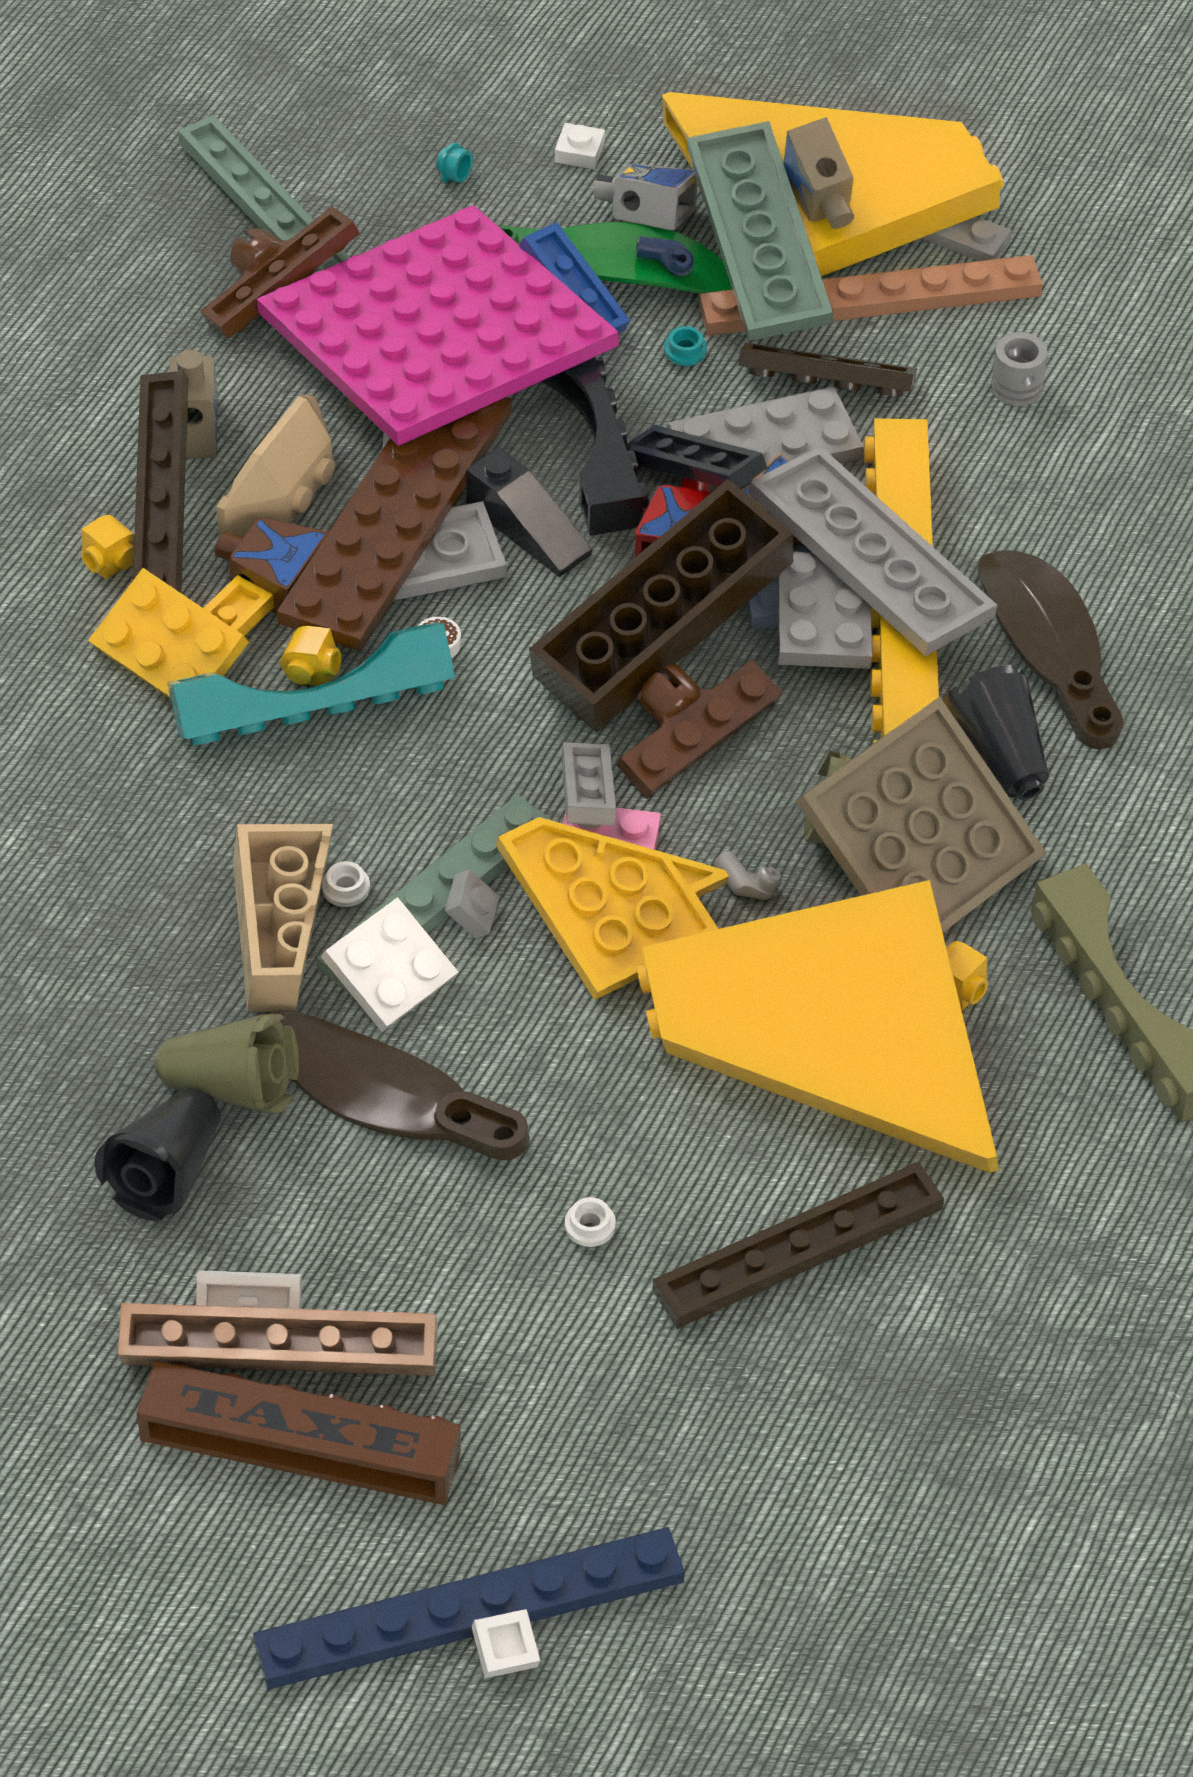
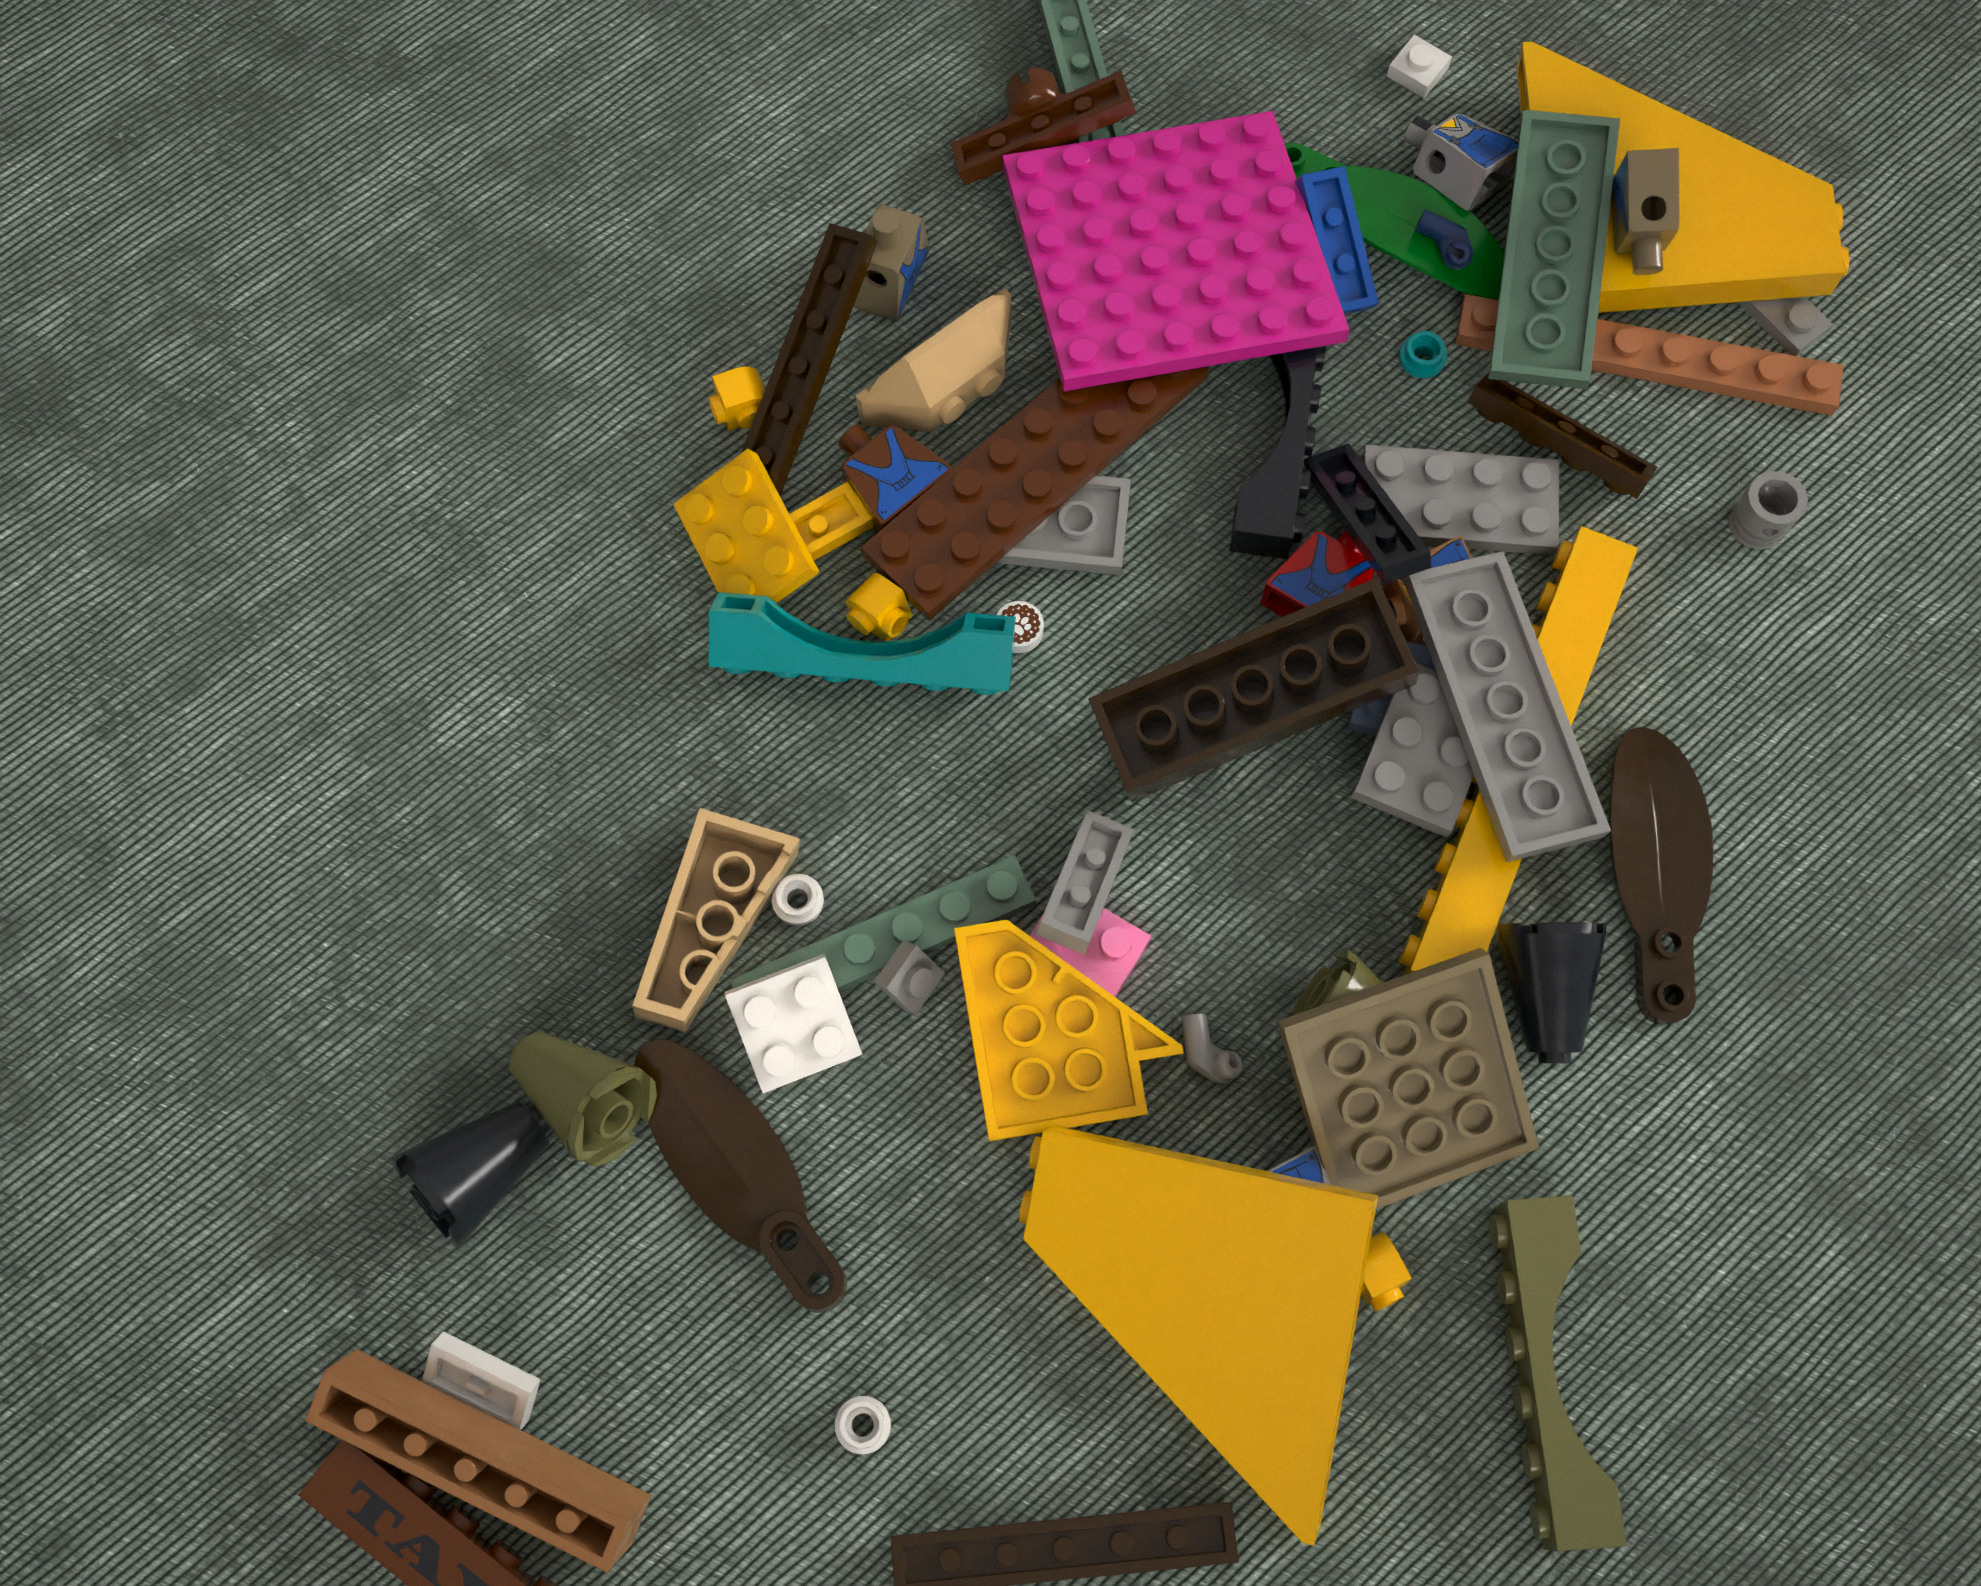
camera: 25 degrees right, 20 degrees up
(454, 163) = (1280, 47): teal plate -> none
(525, 511) = (1170, 507): black slope -> none
(692, 721) = (1233, 832): reddish brown plate -> none

